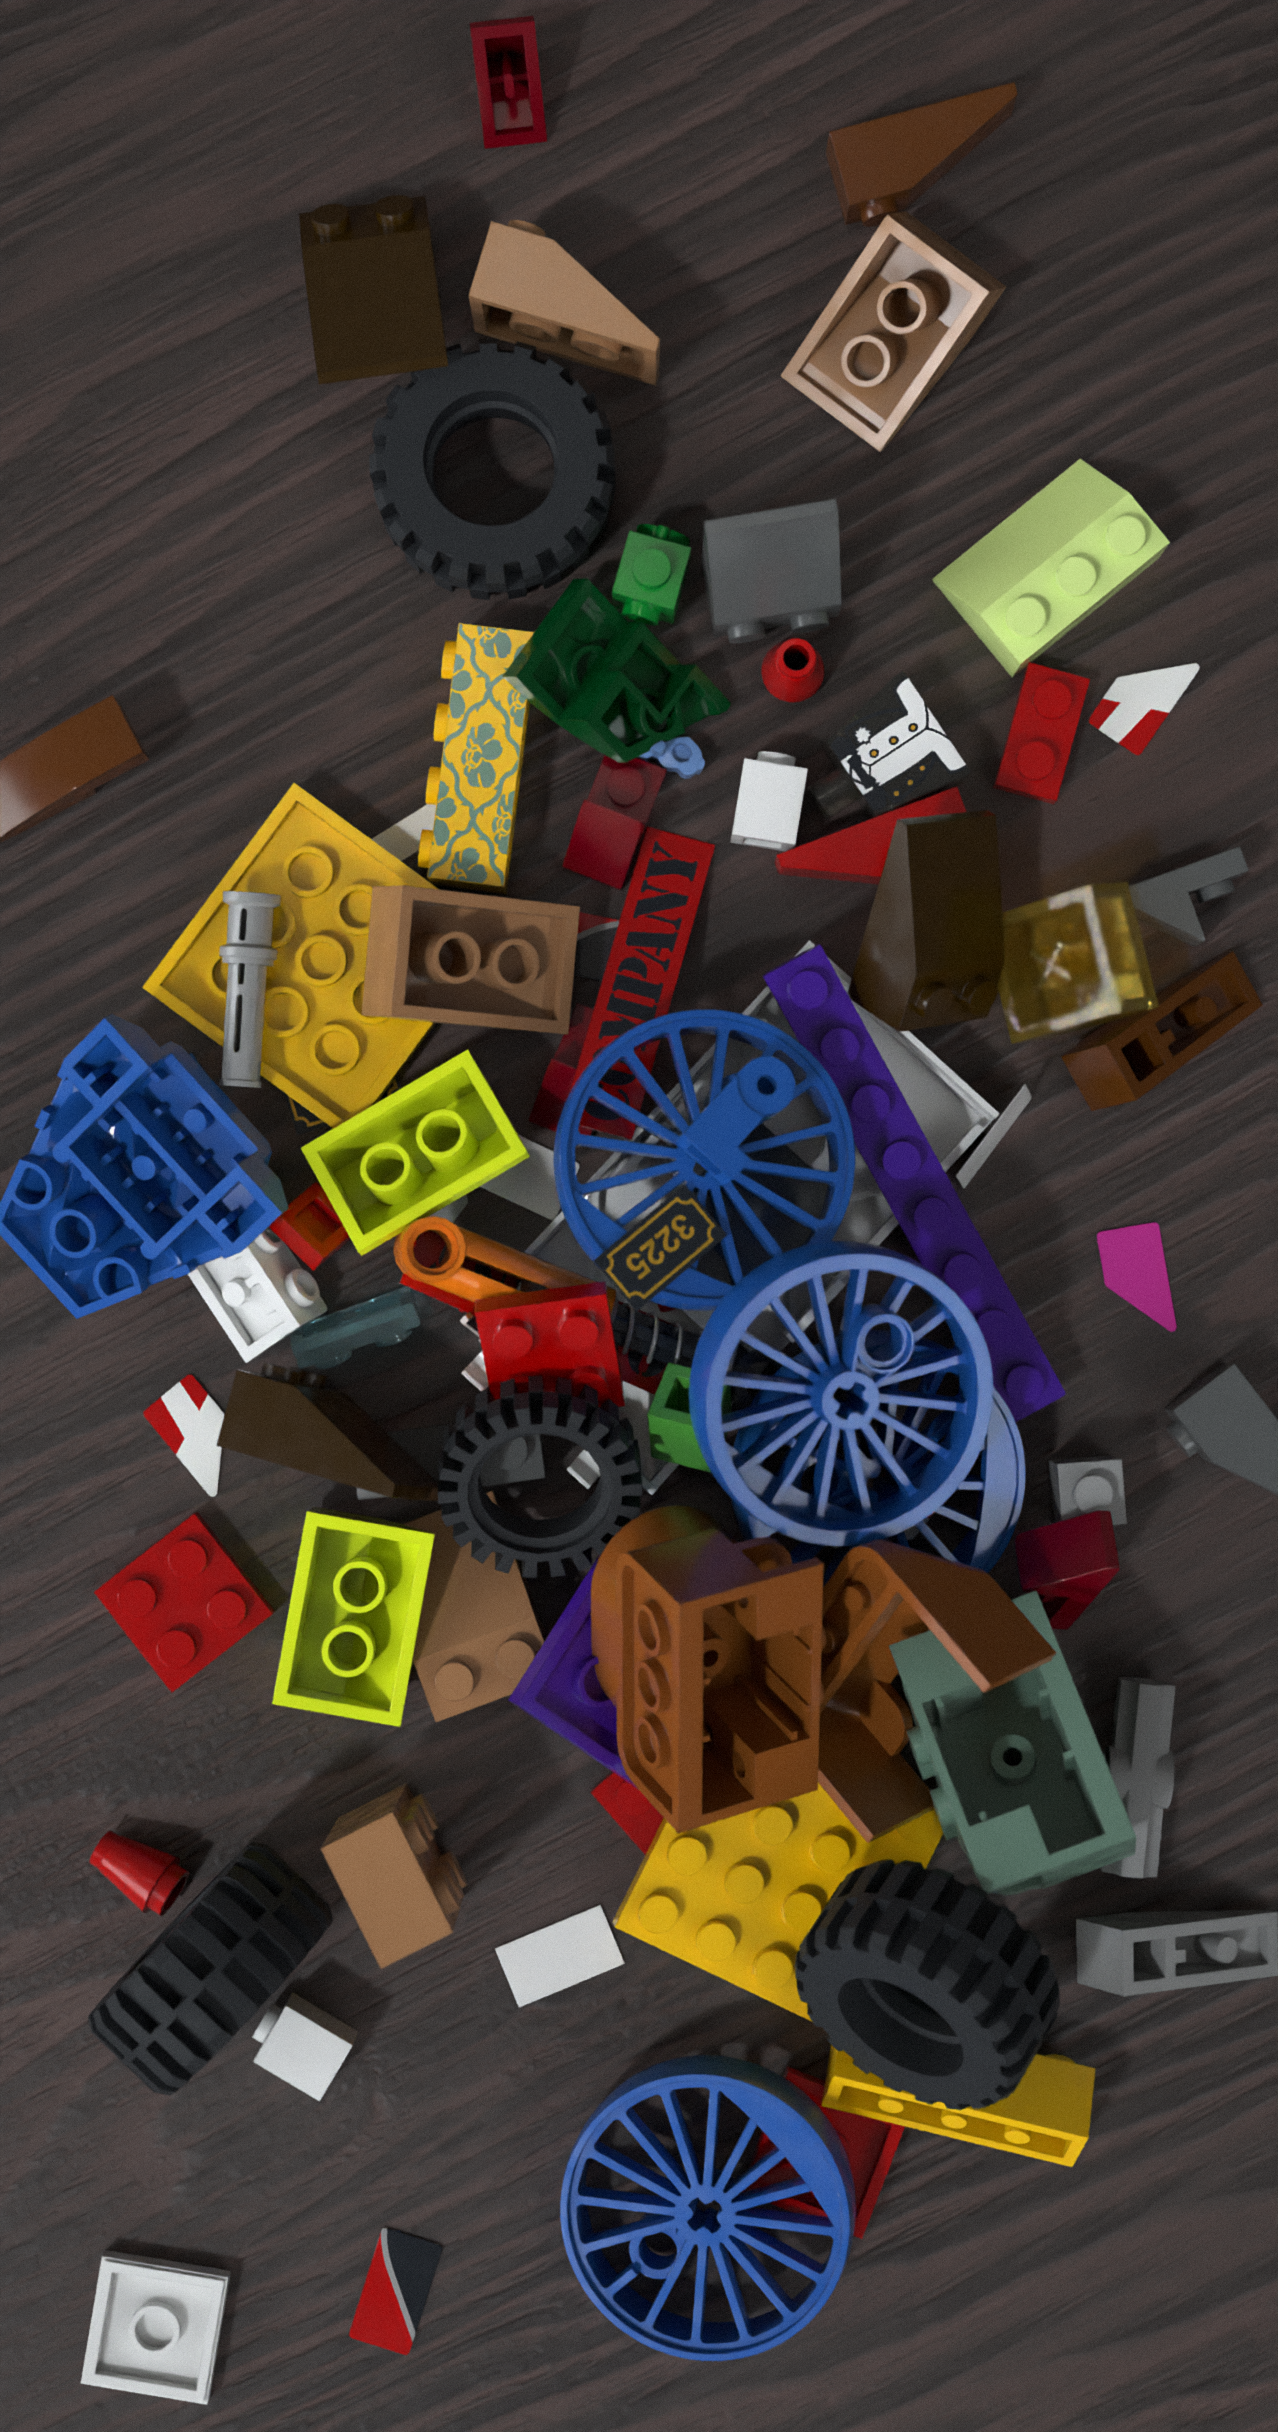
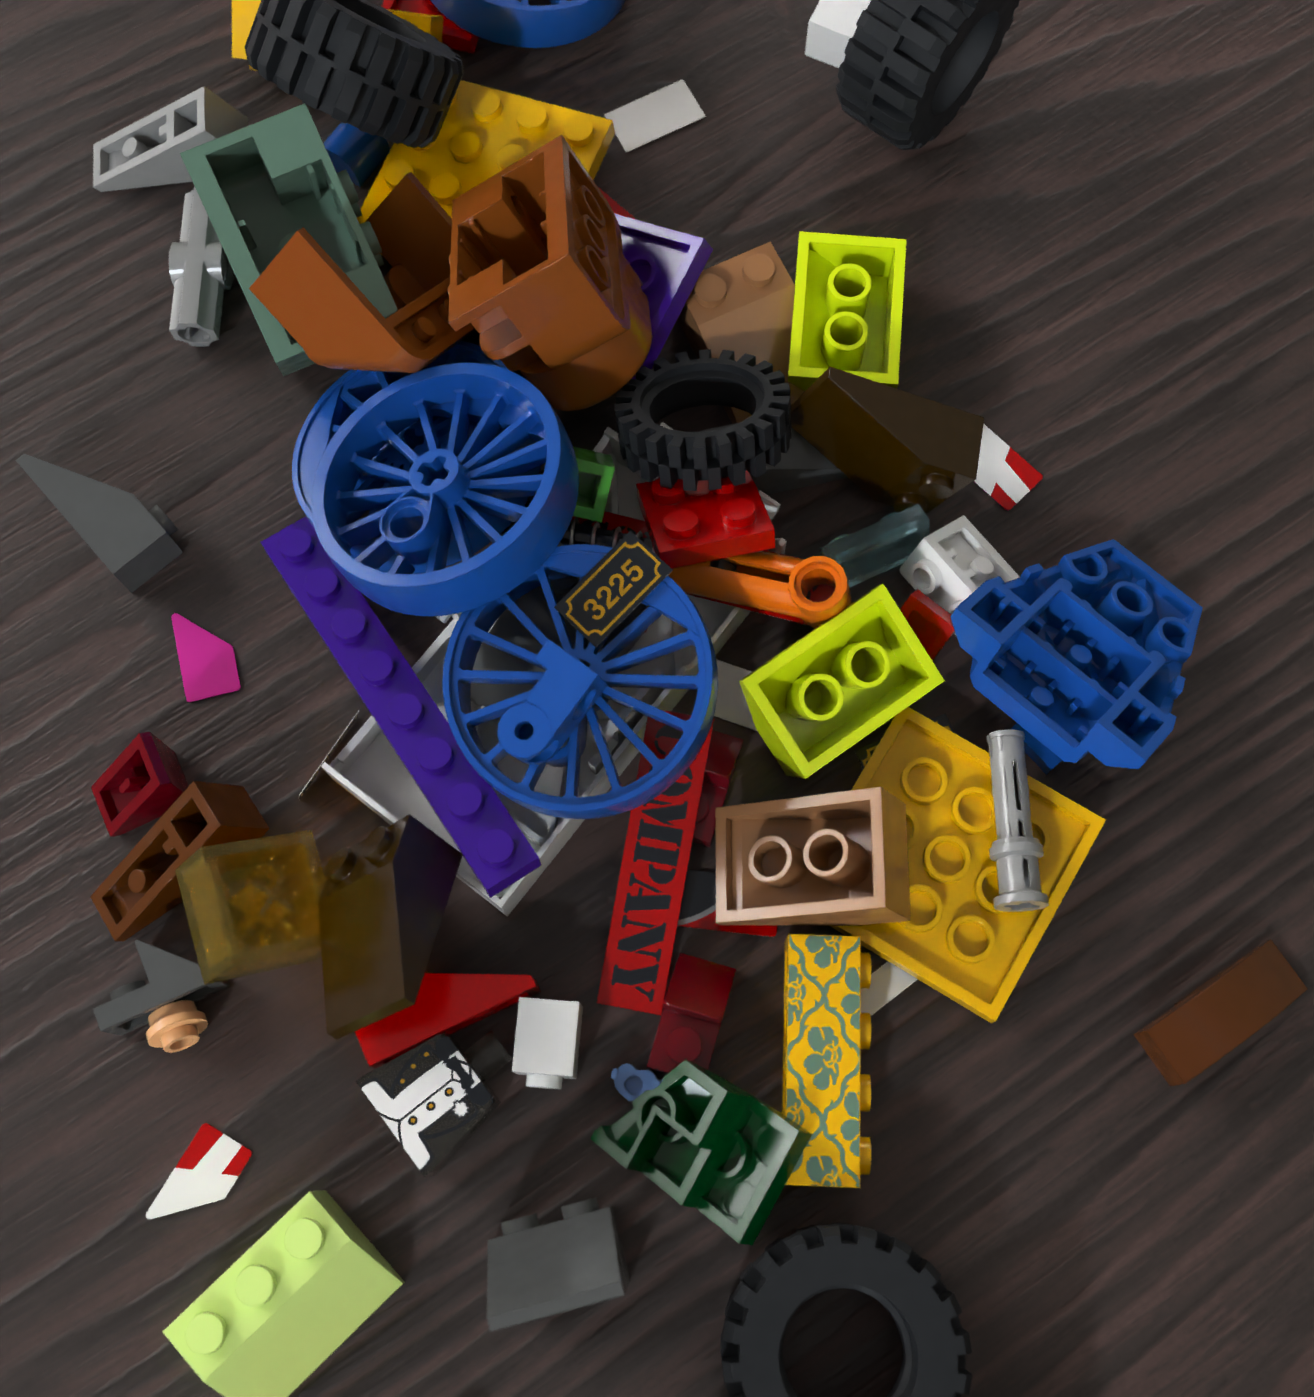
camera: 175 degrees right, 15 degrees down
(140, 1872) = (990, 137): red cone -> none
(184, 1602) = (985, 334): red plate -> none
(396, 1874) = (791, 122): medium nougat brick -> none
(652, 574) = (676, 1258): green brick -> none
(792, 684) = (550, 1171): red cone -> none
(1041, 733) = (294, 1135): red plate -> none
(1068, 1564) = (252, 399): dark red slope -> none
(1087, 1486) = (242, 469): light grey brick -> none
(1164, 852) = (176, 1026): none -> light nougat plate
(1207, 1118) = (139, 785): none -> dark red slope

